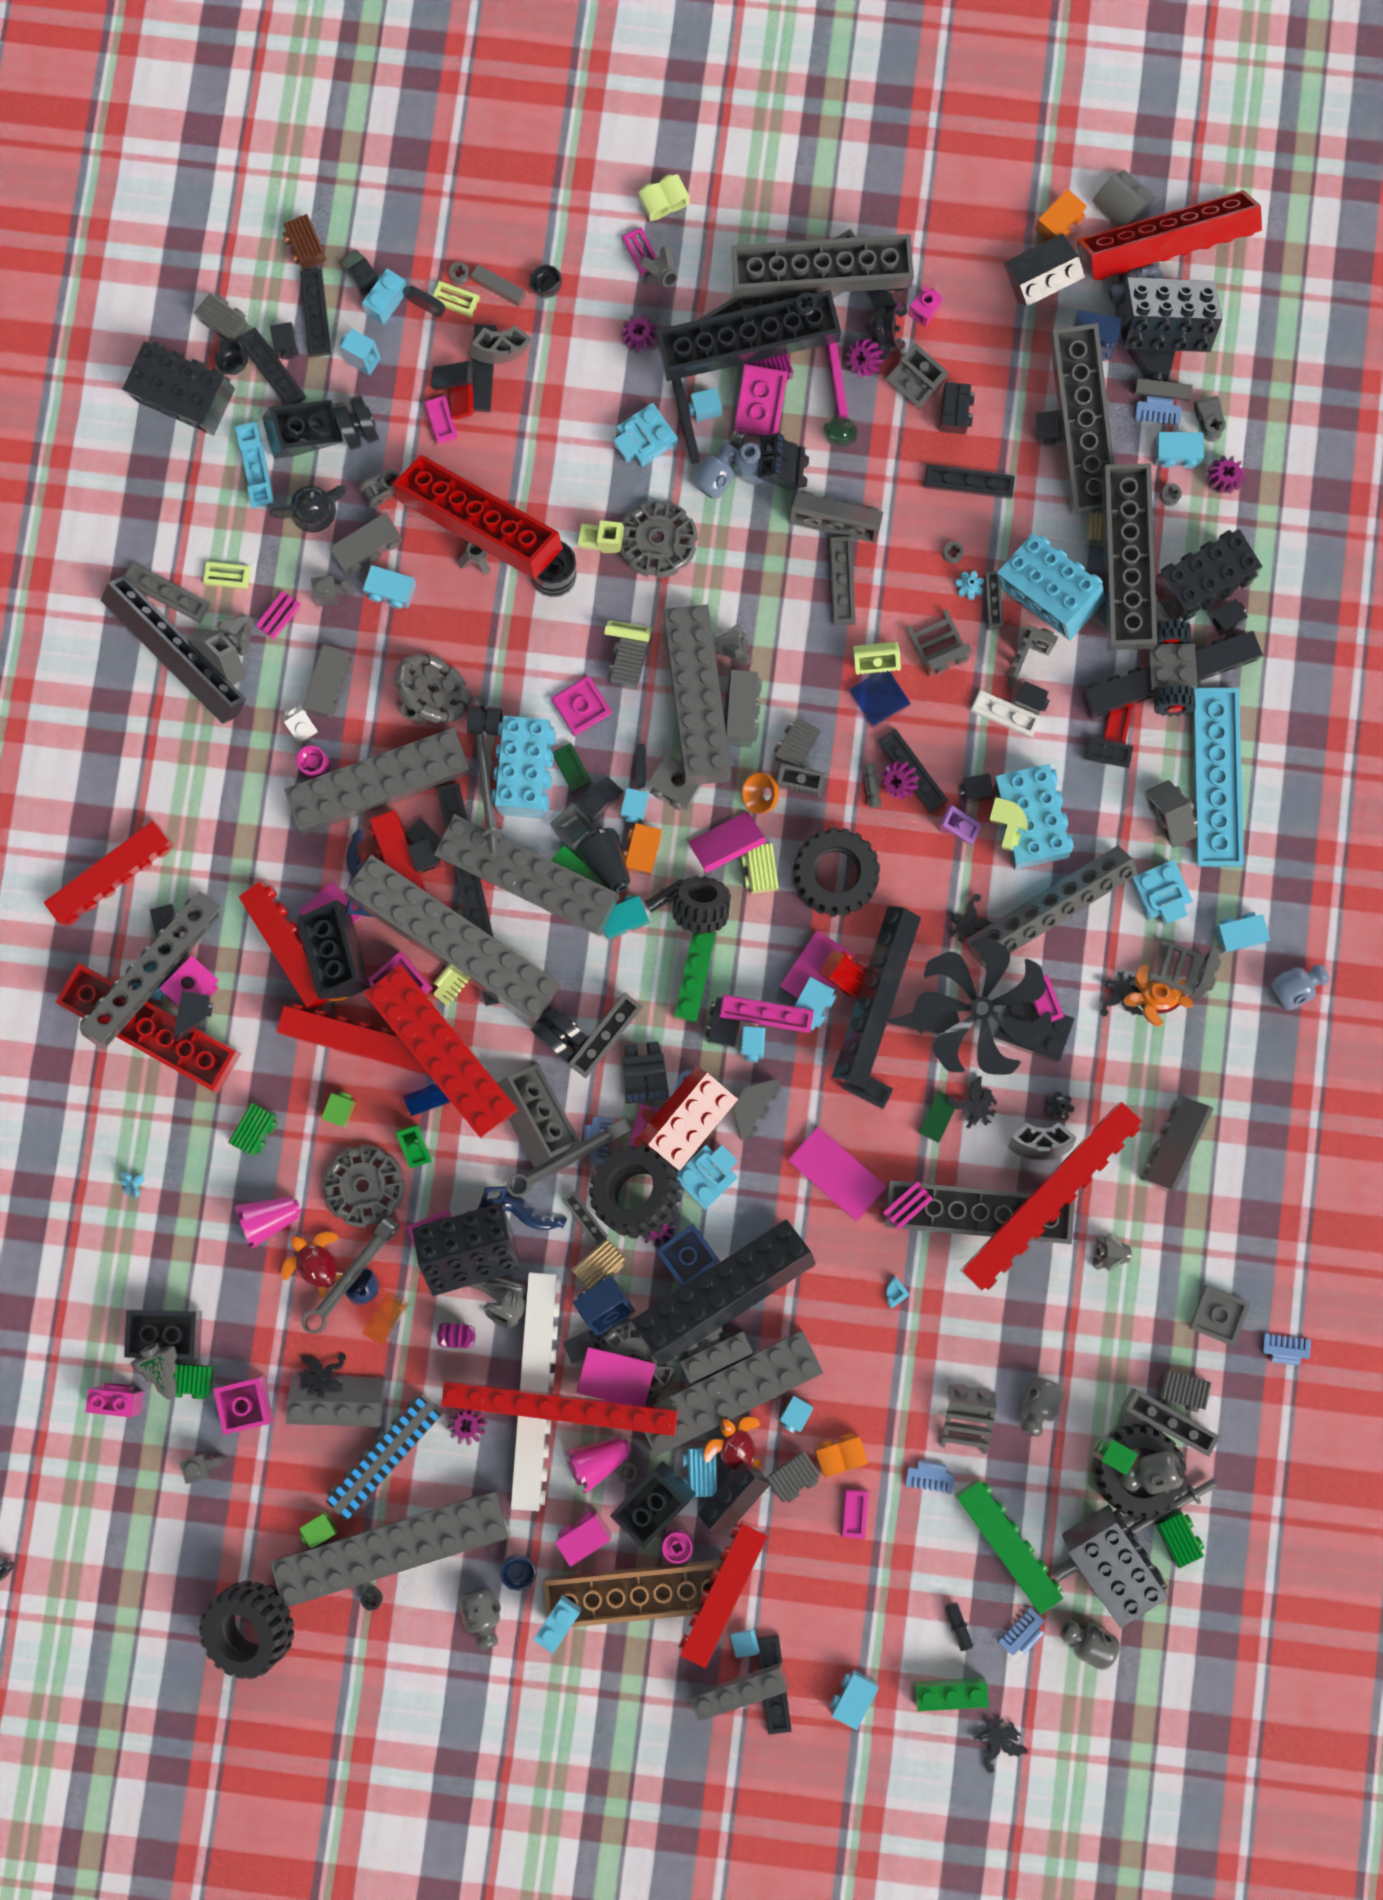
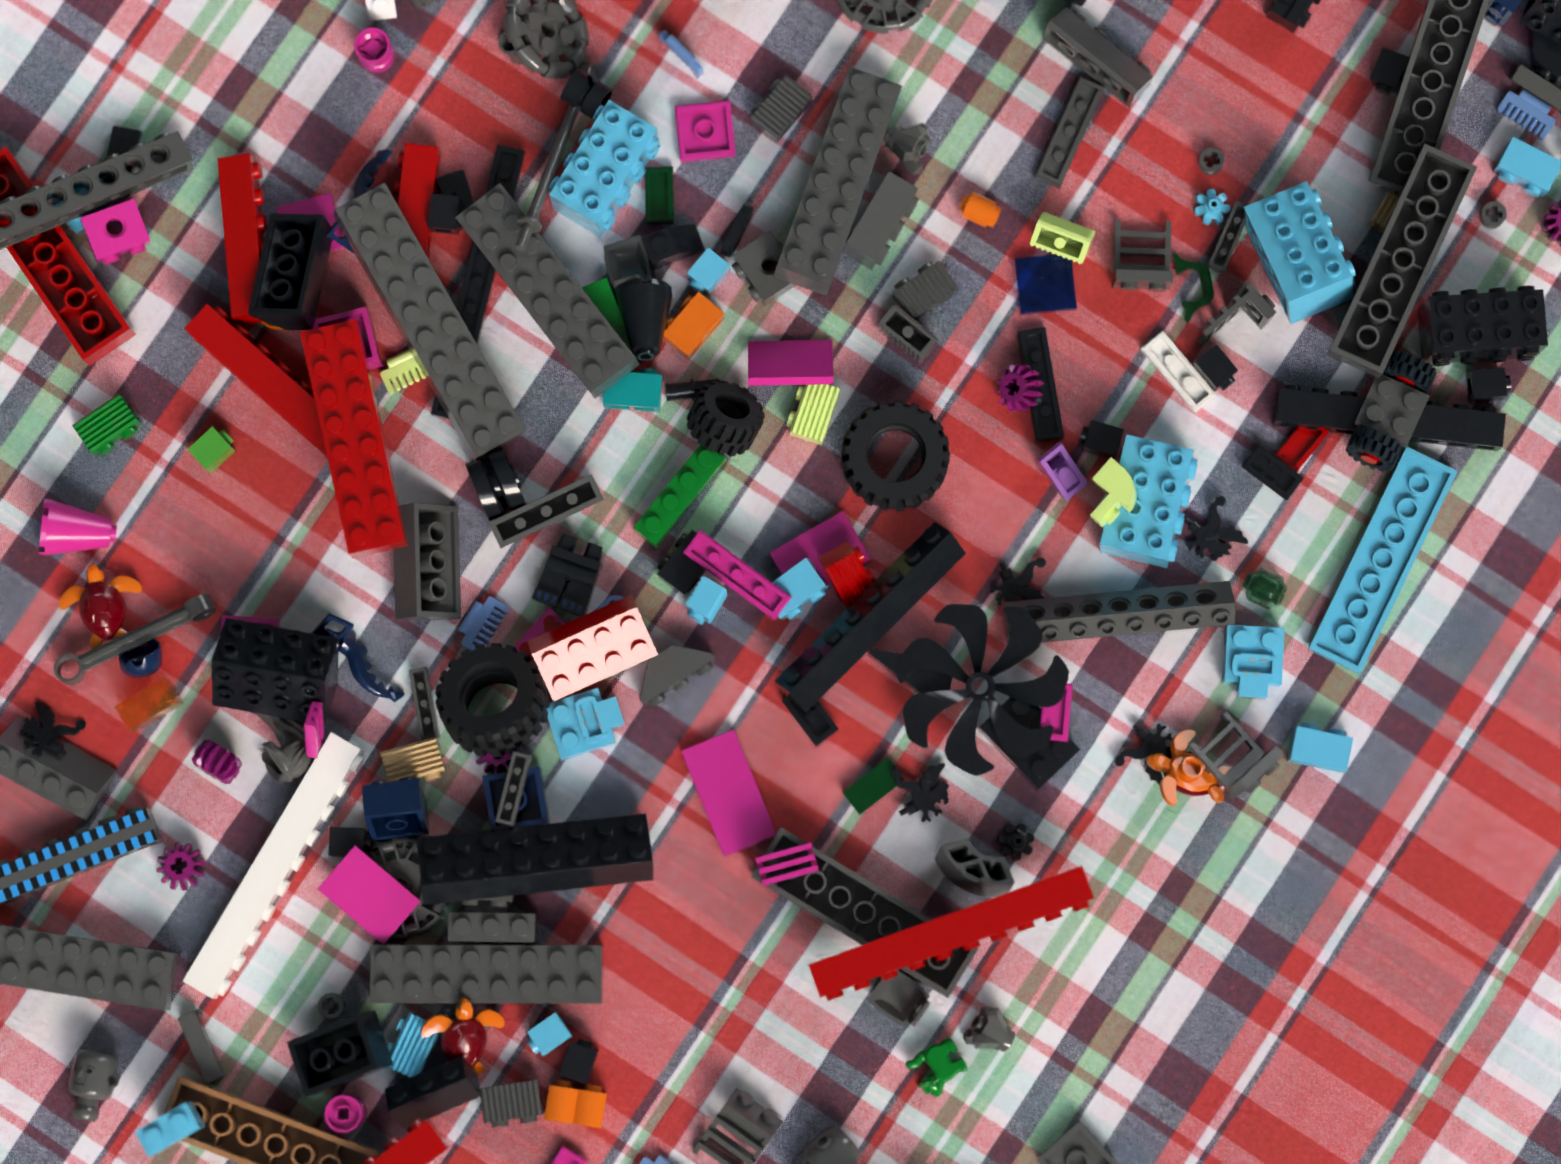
camera: 25 degrees right, 0 degrees up
(108, 874) = (88, 64): red brick -> none
(191, 1013) = (101, 262): black slope -> none
(375, 1192) = (209, 559): dark grey plate -> none
(377, 781) = (435, 105): dark grey brick -> none
(413, 1145) = (274, 529): green slope -> none
(425, 1099) = (310, 485): clear blue tile -> none
(516, 1277) = (314, 729): none -> dark pink tile
(517, 1572) = (156, 1054): dark blue hair -> none
(536, 657) = (681, 52): none -> medium blue piece
(545, 1548) = (201, 1047): none -> dark grey piece
(560, 1407) = (291, 895): red brick -> none
(570, 1156) = (442, 626): dark grey piece -> none
(583, 1538) = (246, 1052): dark pink brick -> none
(595, 1461) = (303, 976): dark pink cone -> none
(628, 630) = (799, 72): yellowish green tile -> none
(683, 1249) = (513, 788): none -> dark grey piece
(753, 793) = (848, 323): orange piece -> none
(807, 666) = (980, 210): none -> orange brick
(827, 1422) = (579, 1061): none -> black brick
(872, 786) = (986, 379): dark grey axle -> none
(895, 1292) = (728, 957): medium azure tile -> none
(969, 481) = (1270, 89): black tile -> none
(991, 638) = (1206, 284): none -> dark green helmet
(1037, 1262) = (900, 999): none -> dark grey piece
(1085, 818) = (1207, 535): none -> black piece
(1090, 1296) = (943, 1068): none -> green animal
(1145, 837) = (1265, 588): none -> clear green head
(1173, 812) = (1309, 574): dark grey brick -> none
(1176, 1144) = (1124, 946): dark grey slope -> none
(1298, 987) = (1351, 839): sand blue piece -> none

